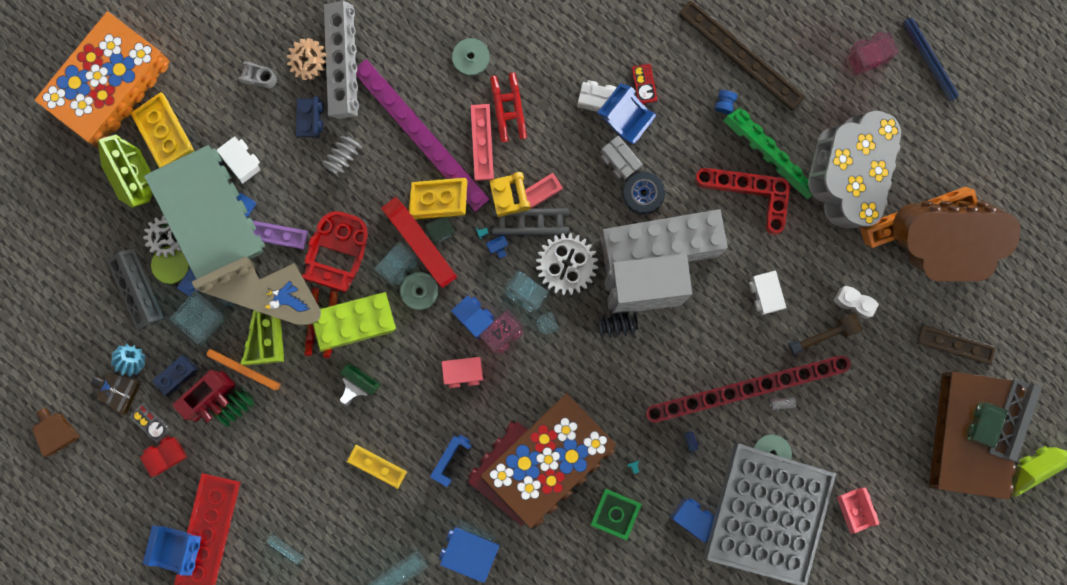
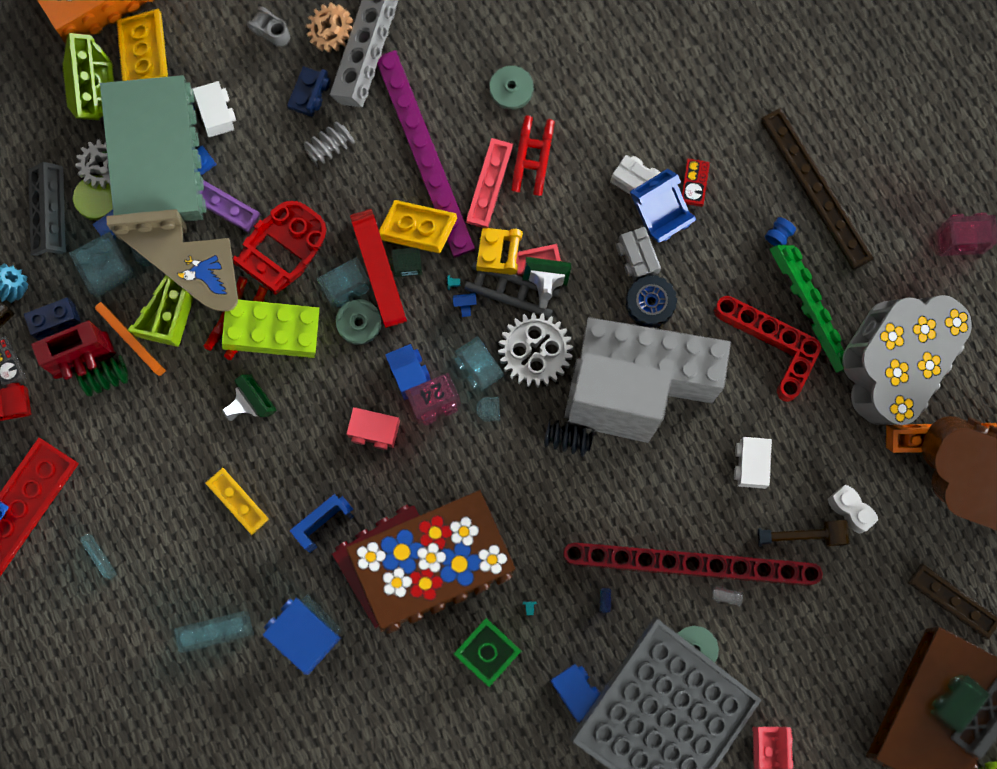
camera: 20 degrees right, 5 degrees down
(554, 202) = (546, 276): none -> piece

